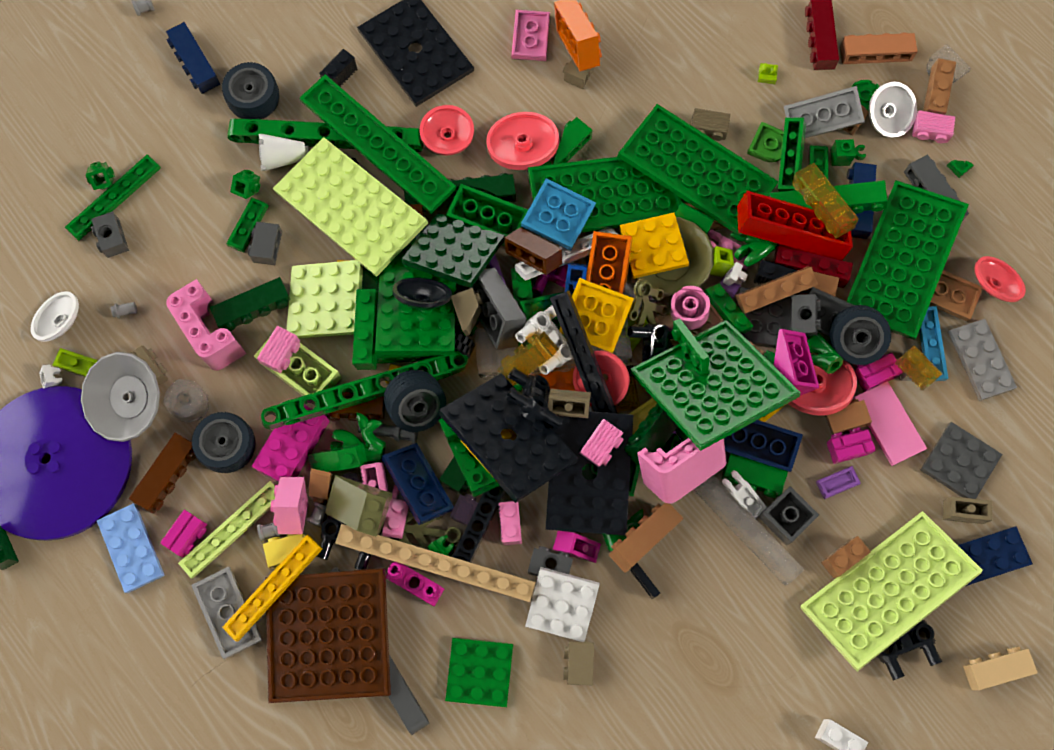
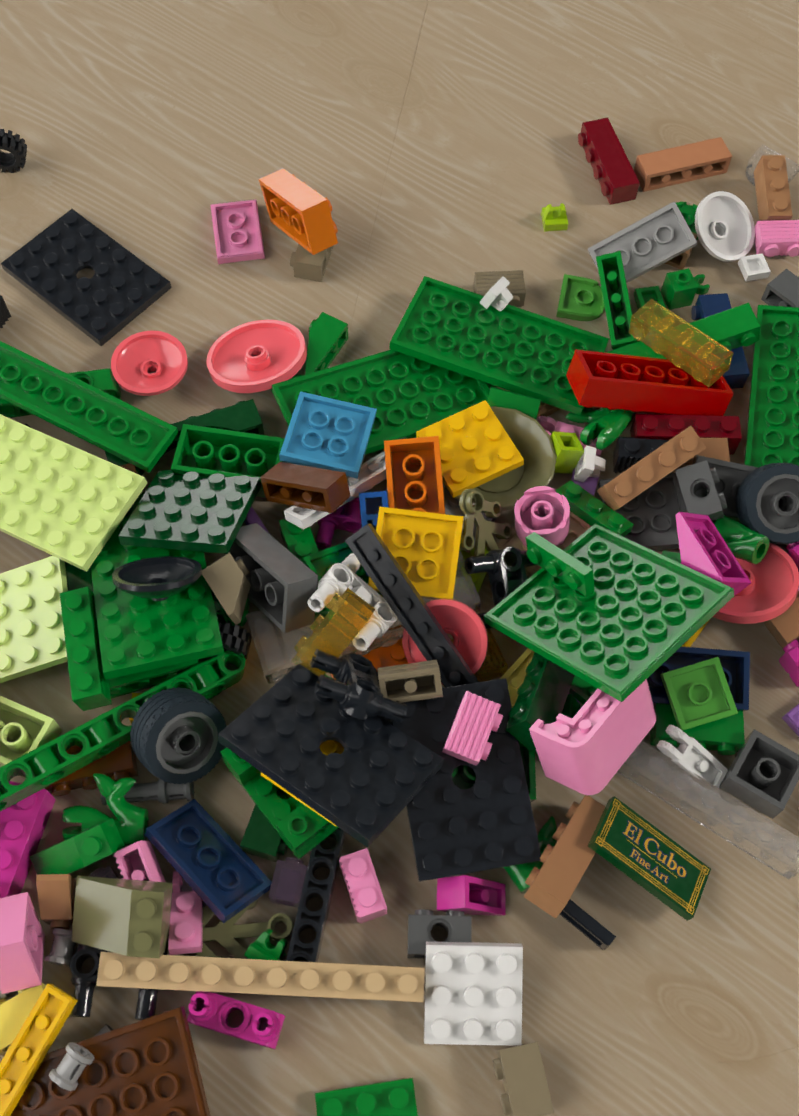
camera: 15 degrees left, 10 degrees down
(312, 586) = (71, 1066): none -> light grey bush
(696, 550) = (650, 858): none -> dark green tile
(705, 132) = (498, 295): none -> white tile
(759, 454) = (698, 693): none -> bright green plate
(905, 146) = (754, 267): none -> white plate

